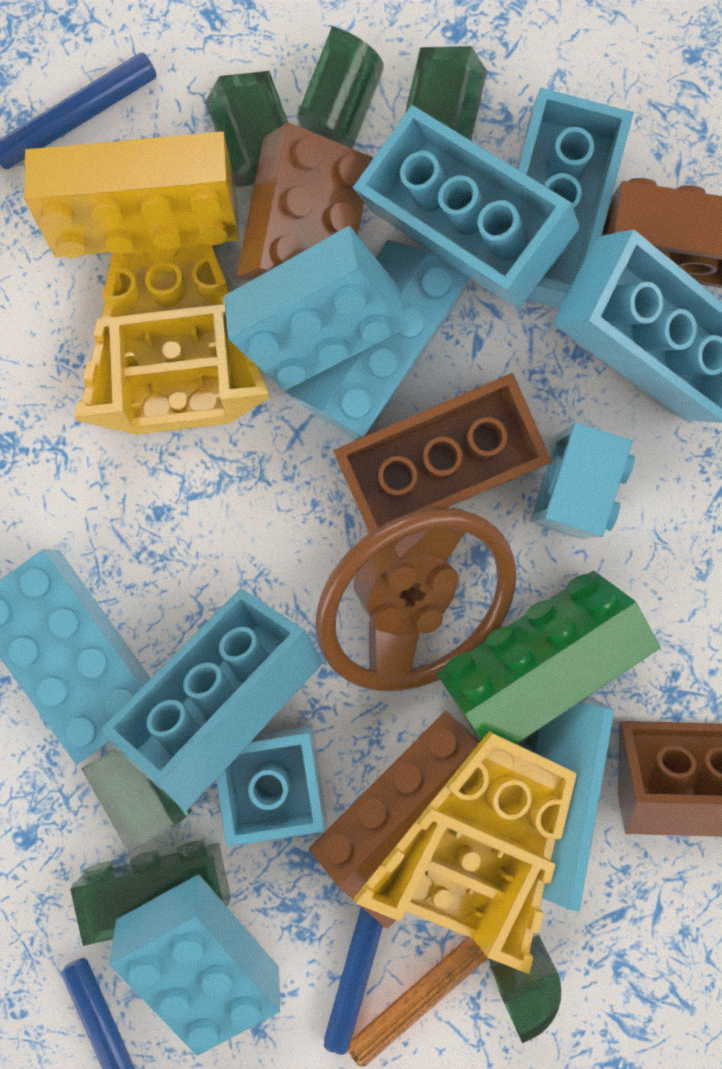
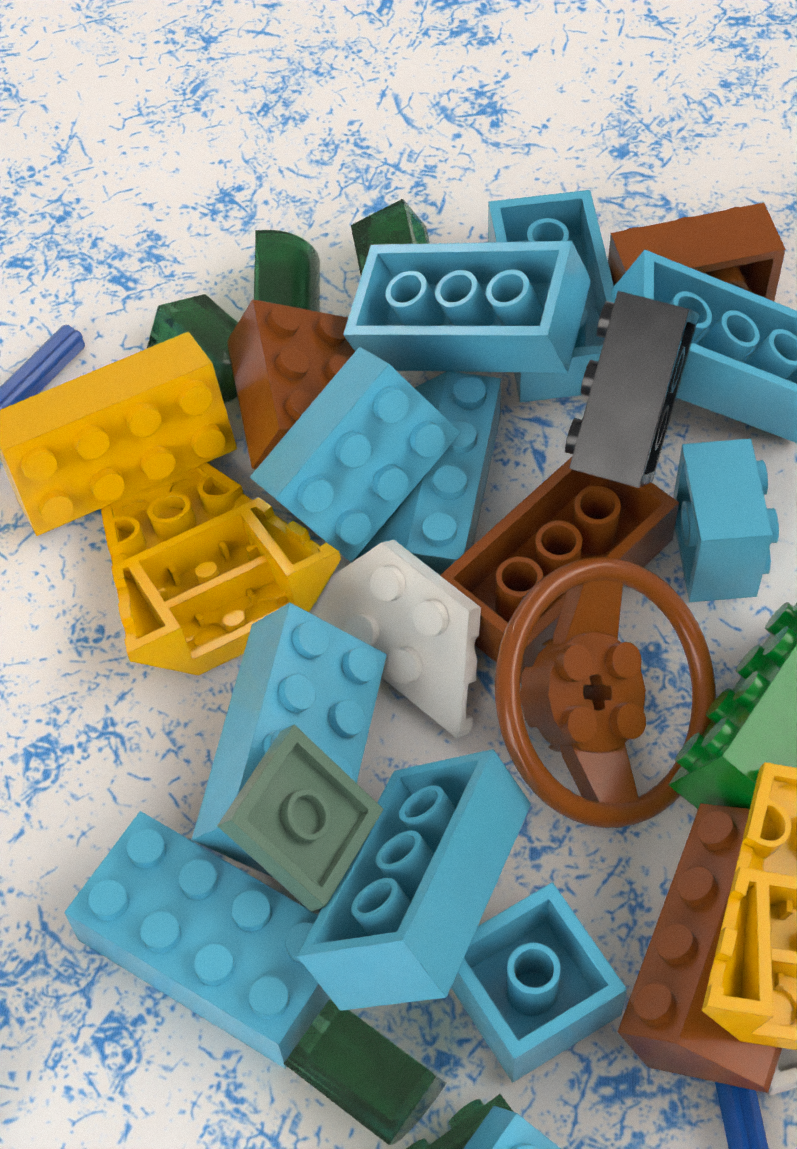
camera: 20 degrees left, 30 degrees down
(142, 625) = (301, 818): none -> sand green plate
(171, 540) = (290, 675): none -> medium azure brick
(300, 471) = (414, 619): none -> white wing
(550, 376) = (631, 389): none -> black brick

